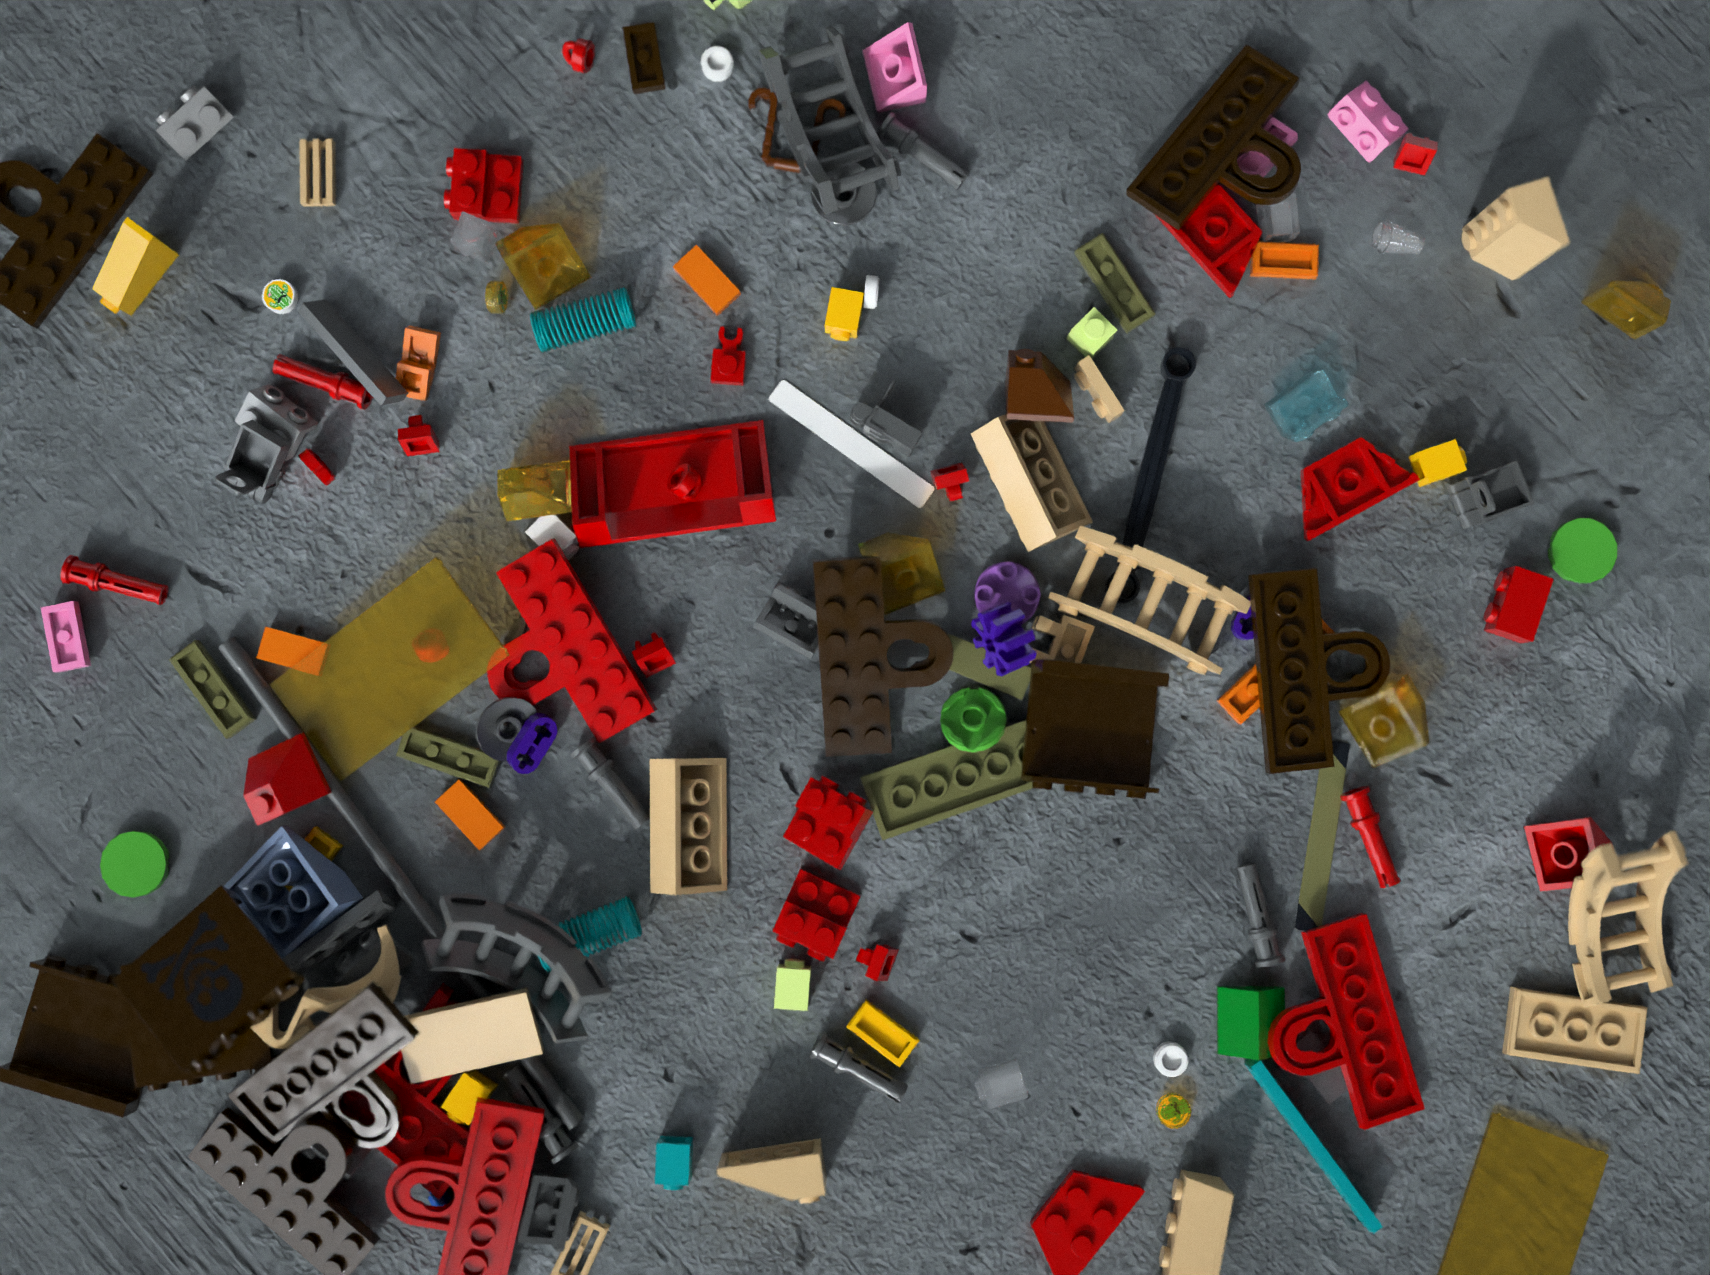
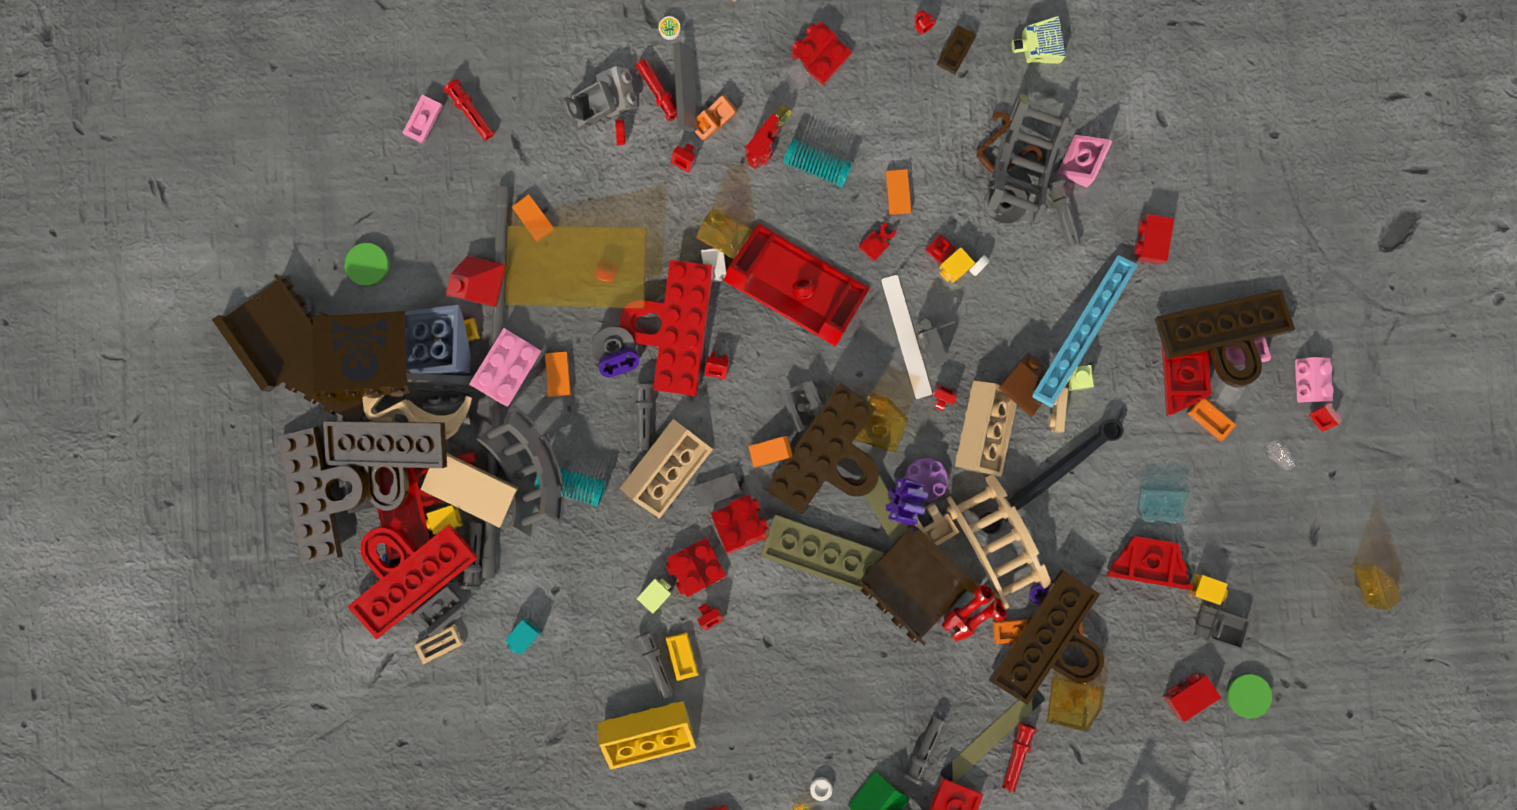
camera: 35 degrees right, 0 degrees up
(212, 689) = (476, 205): olive tile -> none
(398, 856) = (505, 367): none -> bright pink plate
(448, 756) = (570, 335): olive tile -> none
(498, 353) = (759, 148): none -> red plate
(542, 262) = (820, 116): clear yellow slope -> none
(717, 63) = (992, 82): white tile -> none
(768, 802) = (717, 489): none -> flat silver tile
(782, 1170) = (577, 686): tan slope -> none
(796, 706) = (770, 451): none -> orange tile
(810, 309) = (940, 249): none -> red tile
(913, 1162) = (646, 735): none -> yellow slope
(973, 719) = (857, 530): bright green tile -> none
(1001, 1084) = (722, 731): clear brick -> none
(1052, 101) = (1154, 239): none -> red brick
(1056, 272) = (1084, 331): none -> medium azure plate
(1114, 283) = (1111, 360): olive tile -> none
(1188, 729) = (967, 625): none -> red piece
(1517, 230) = (1346, 499): tan slope -> none

